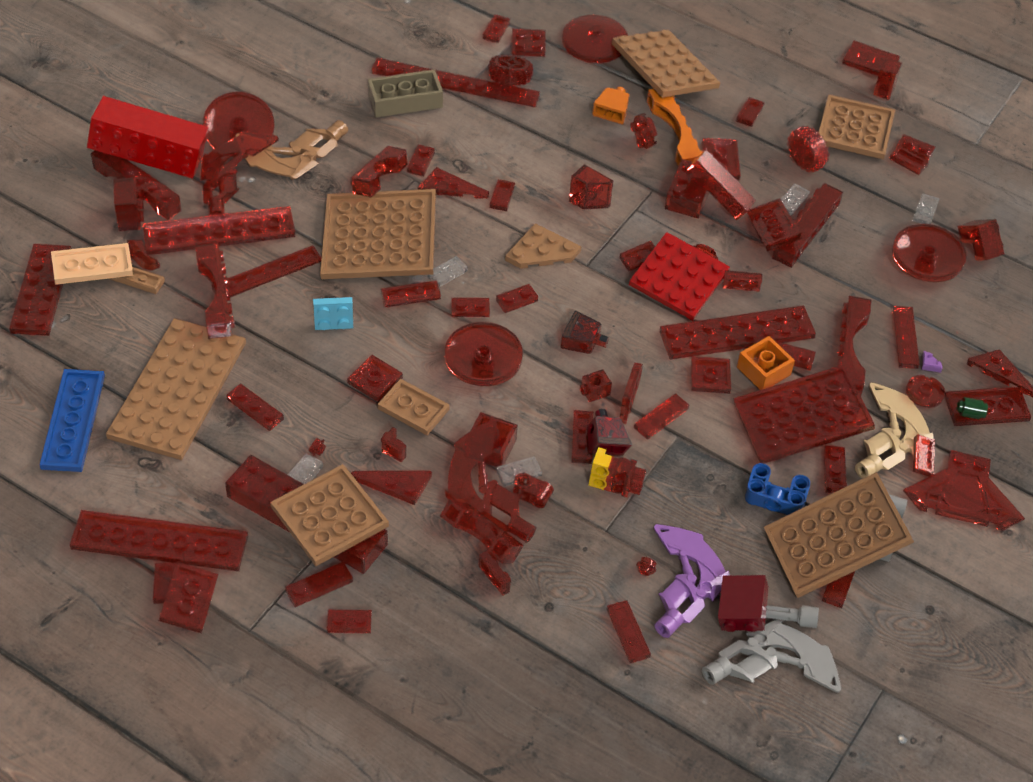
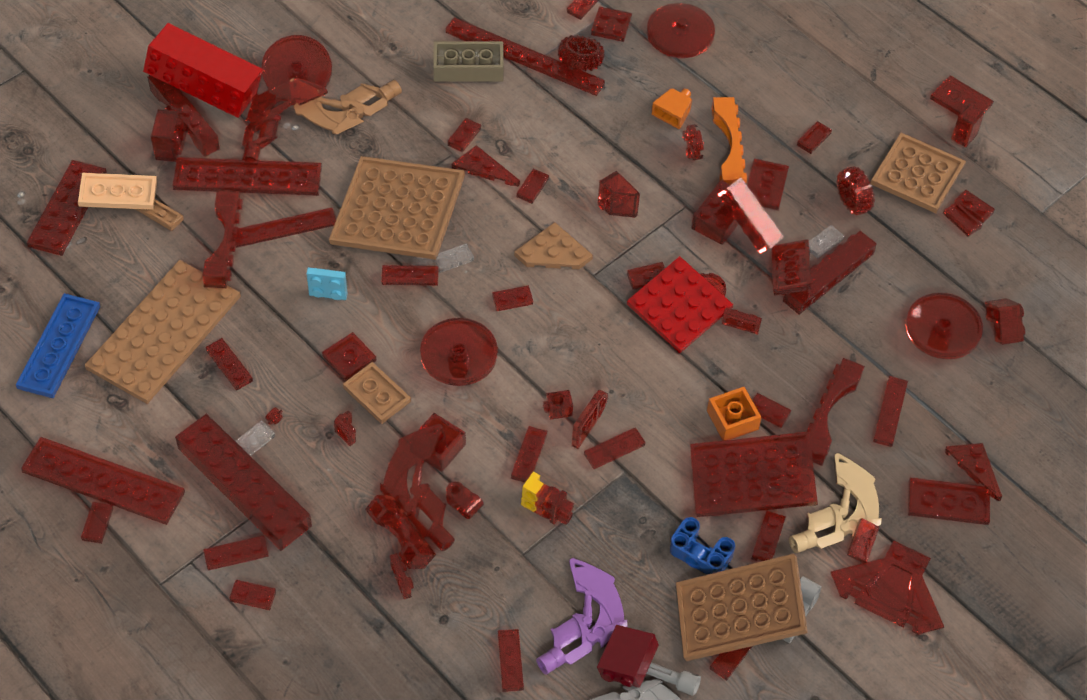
camera: 15 degrees right, 5 degrees up
(138, 254) = (164, 186): clear red piece -> none
(188, 597) = (112, 542): clear red plate -> none
(329, 514) = (258, 489): medium nougat plate -> none
(367, 180) = (431, 131): clear red arch -> none
(399, 484) = (340, 468): clear red wing -> none
(470, 307) = (464, 299): clear red plate -> none
(509, 471) = (465, 475): clear plate -> none
(583, 334) = (563, 348): clear red torso -> none
(607, 434) = (551, 458): dark red torso -> none
(646, 566) = (548, 599): clear red plate -> none
(665, 63) = (741, 70): medium nougat plate -> none
(710, 375) = (676, 414): clear red plate -> none
(736, 332) = (719, 374): clear red plate -> none
(925, 391) = (889, 473): clear red tile -> none
(926, 209) = (960, 277): clear plate -> none
(930, 363) = (906, 443): medium lavender tile -> none
(972, 408) = (928, 501): dark green brick -> none

